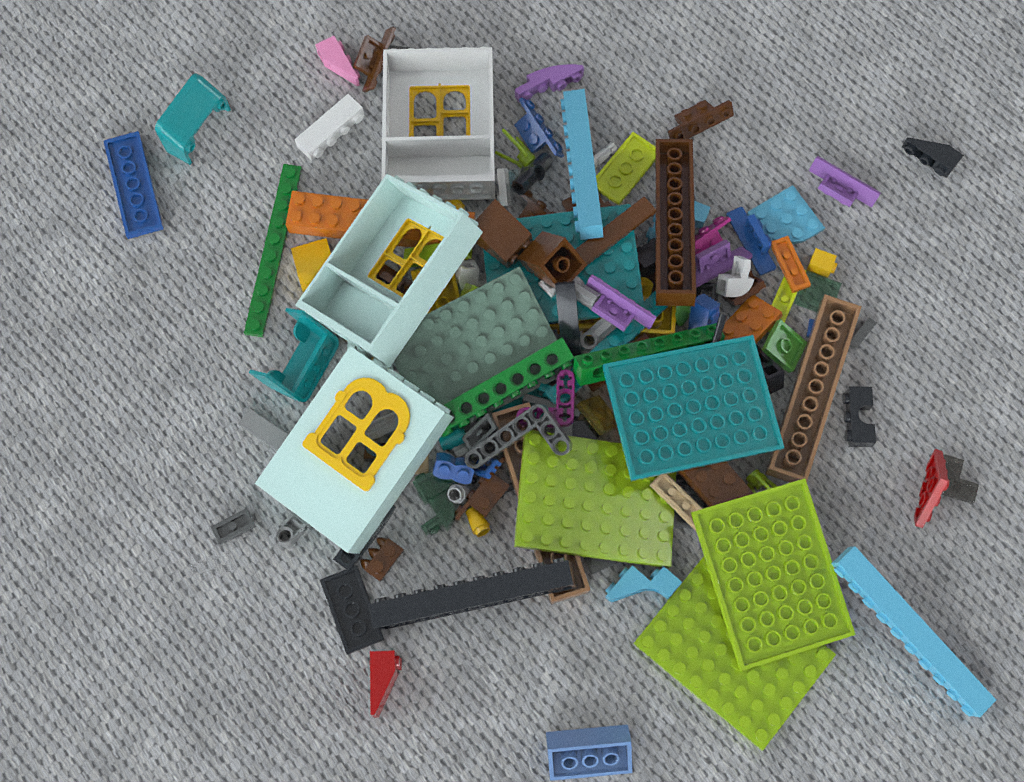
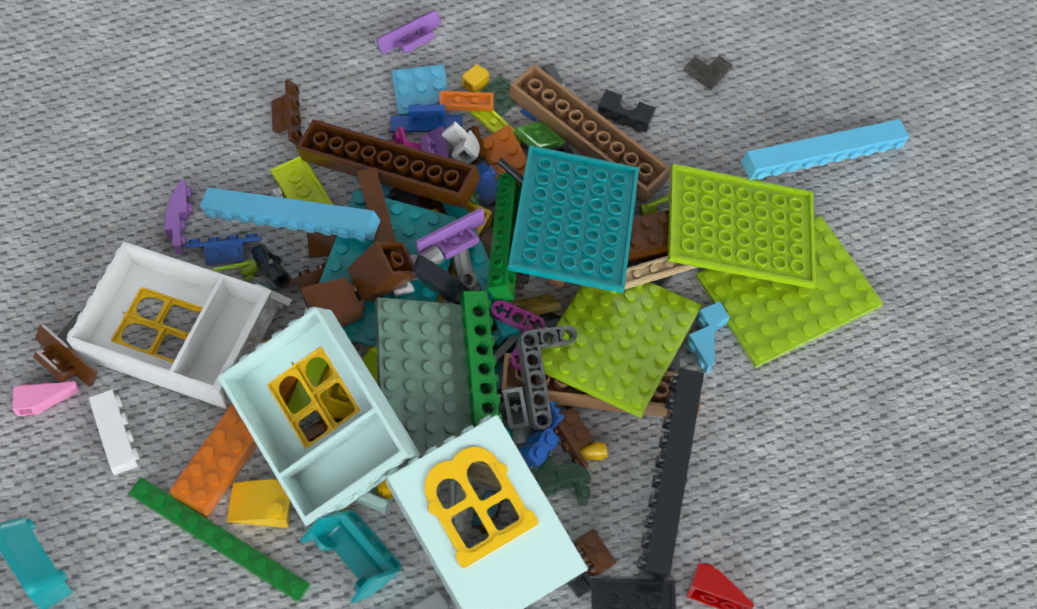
camera: 75 degrees left, 10 degrees down
(458, 492) = (562, 454): light grey cone -> none
(589, 752) = (841, 439): medium blue slope -> none
(931, 490) = (711, 84): red plate -> none

